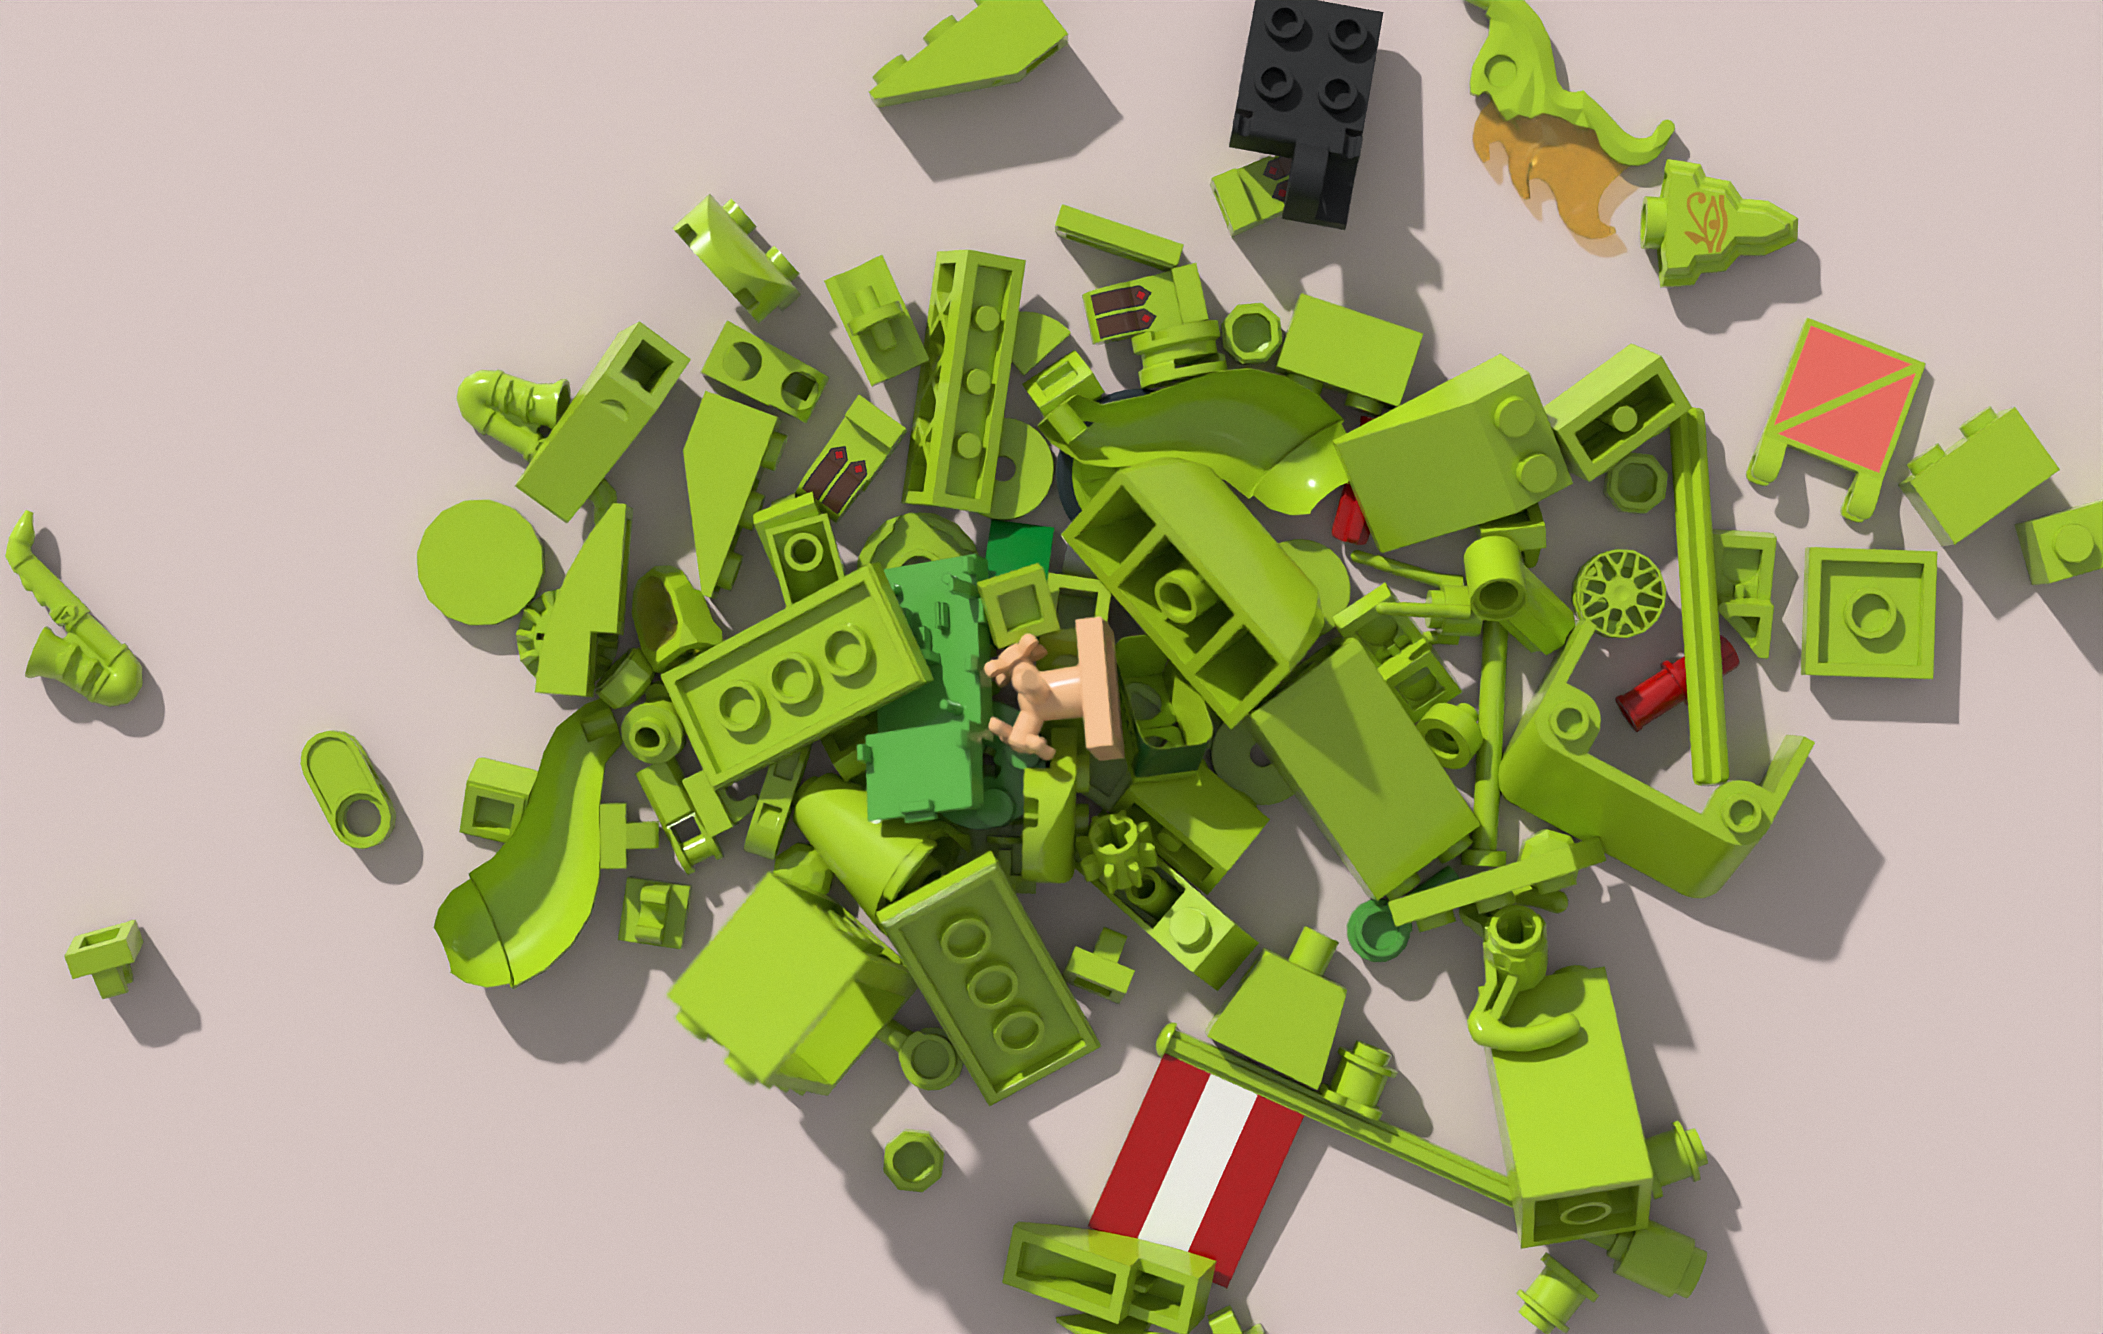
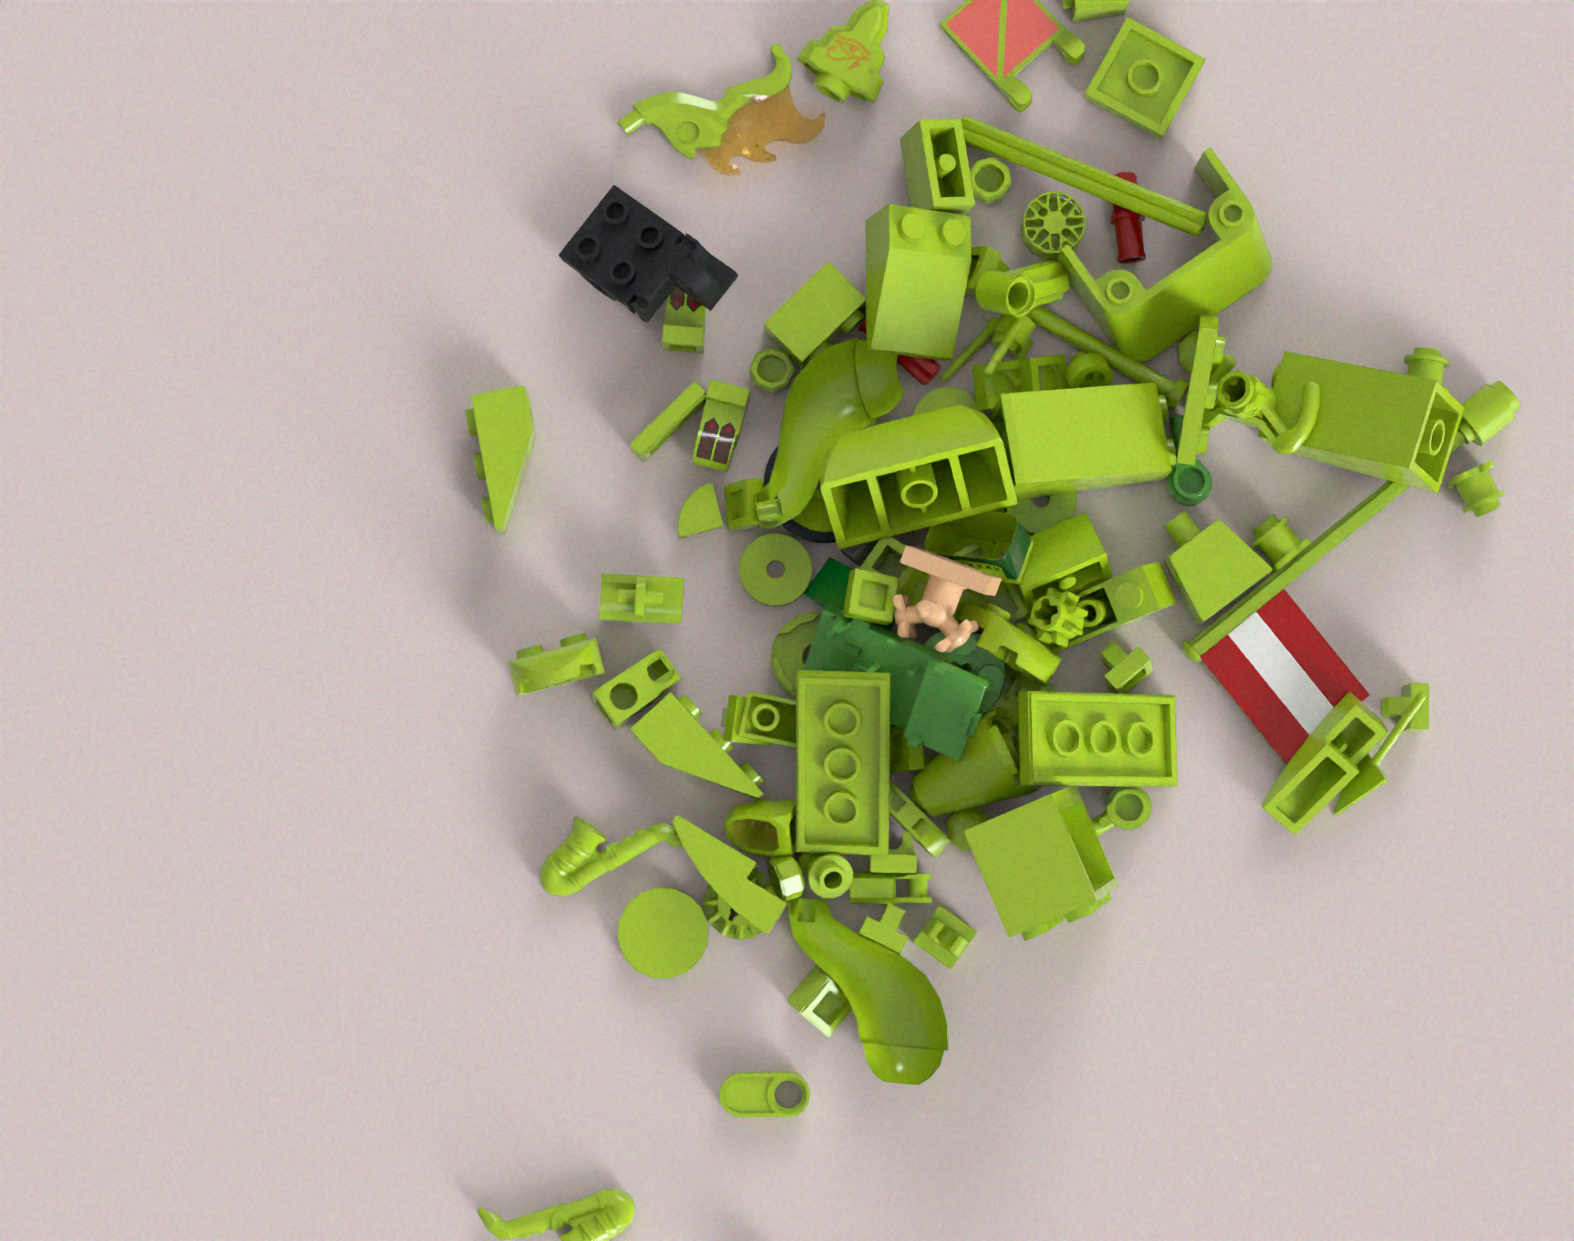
camera: 60 degrees left, 5 degrees down
(602, 420) = (613, 803): lime slope -> none
(852, 458) = (719, 659): lime leg -> none
(914, 1160) = (1188, 851): lime tile -> none
(964, 382) = (709, 562): lime fence -> none
(1175, 346) = (756, 416): lime wheel -> none
(1745, 584) = (1086, 144): lime slope -> none

